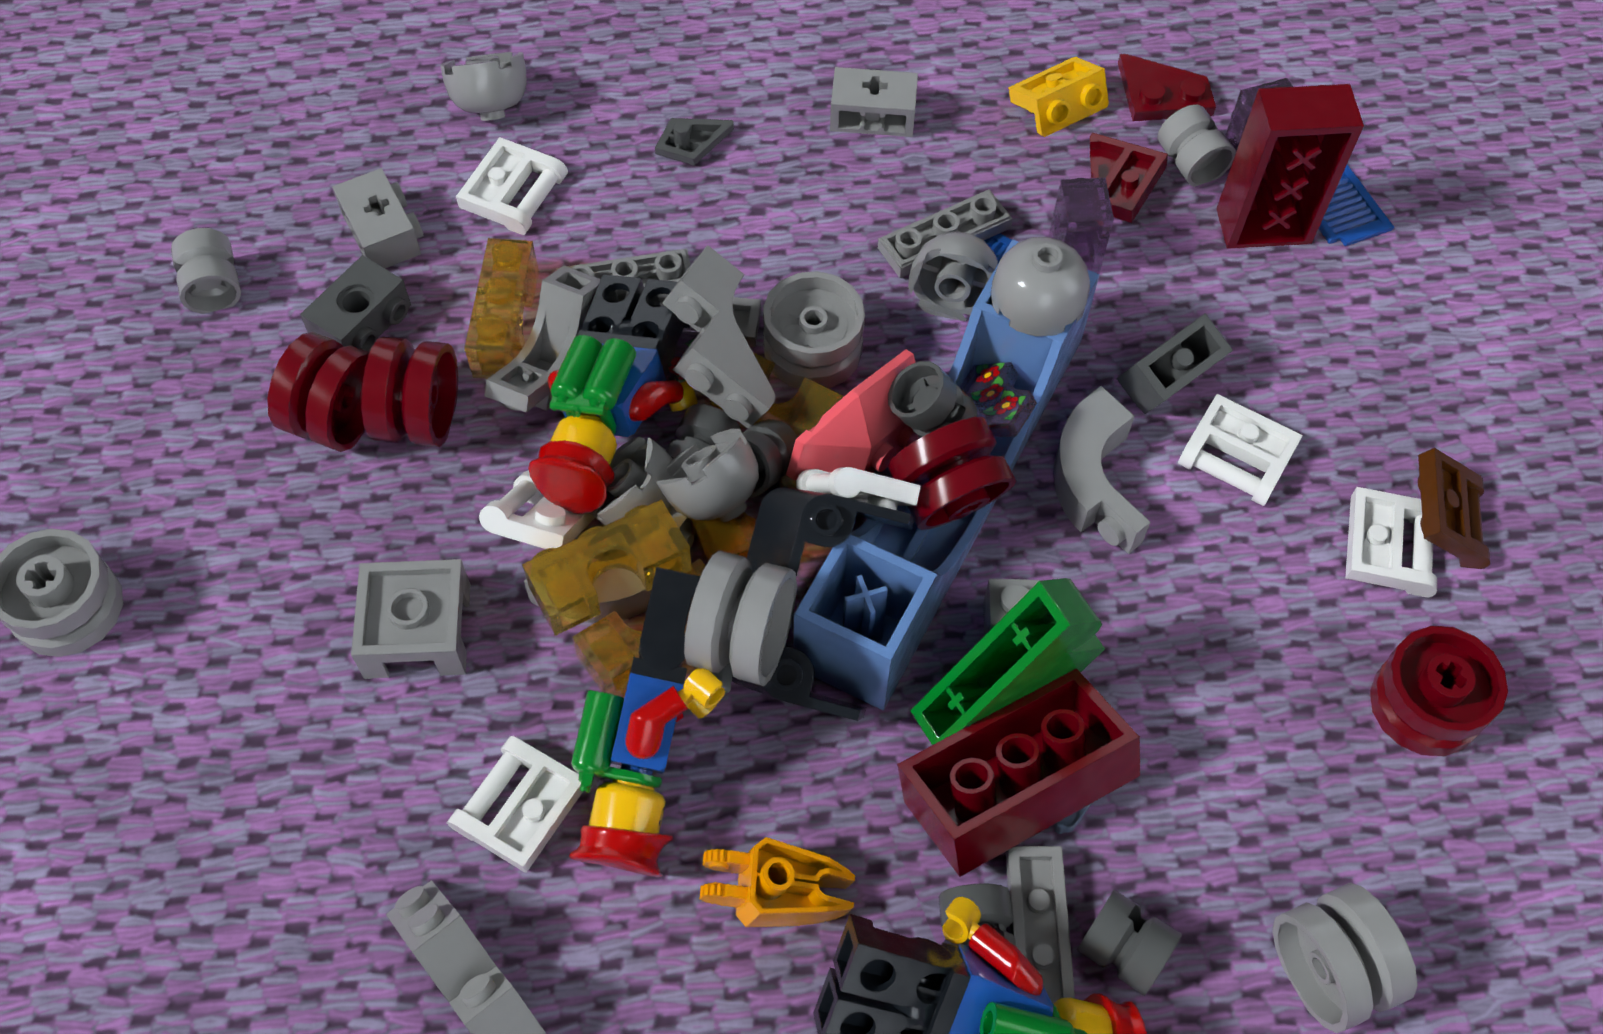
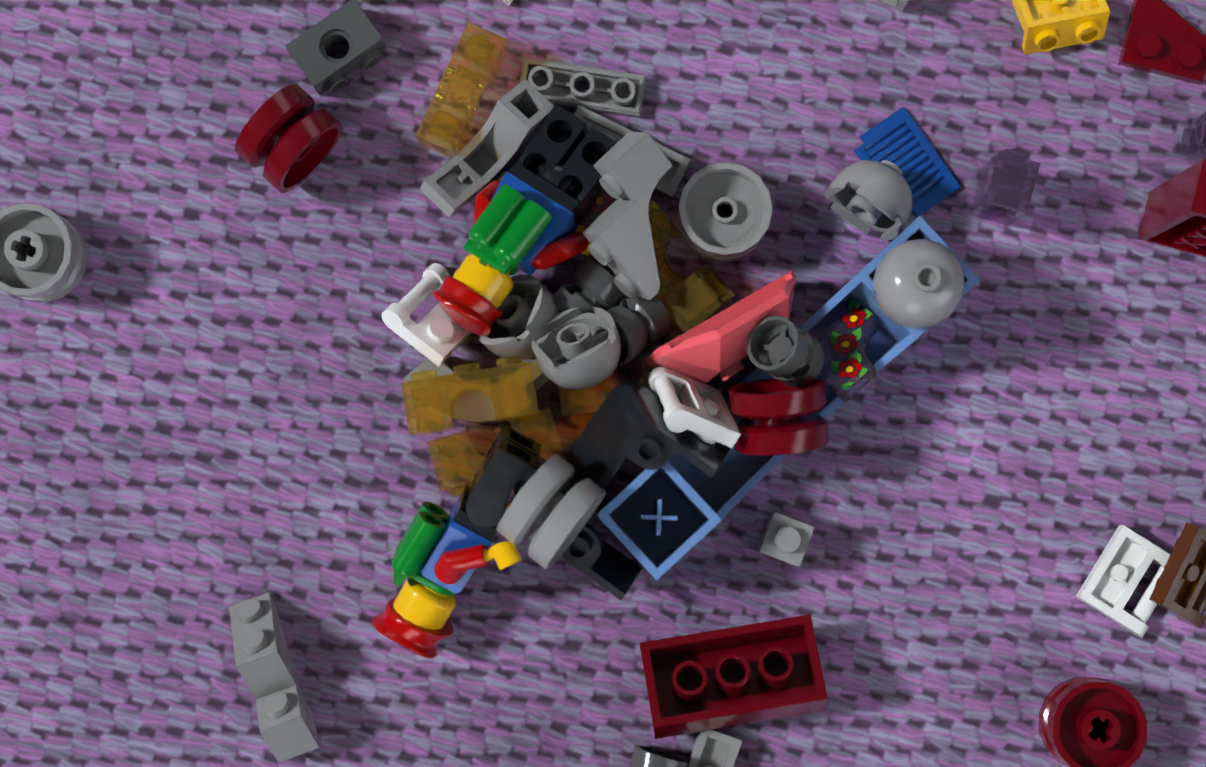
camera: 20 degrees right, 25 degrees up
(409, 391) = (358, 162): dark red wheel -> none
(410, 615) = (306, 373): light grey panel -> none
(530, 812) = (357, 566): white plate -> none
(778, 885) = (517, 696): light orange hinge -> none
(977, 215) = (910, 132): light grey tile -> none
(1028, 648) = (756, 602): green brick -> none
(1080, 484) = (898, 423): light grey arch -> none
(1128, 170) = (1075, 131): dark red wing -> none
(1174, 364) = (1024, 357): dark grey brick -> none
(1196, 145) = (1158, 125): light grey wheel -> none
(1245, 437) = (1056, 443): white plate -> none

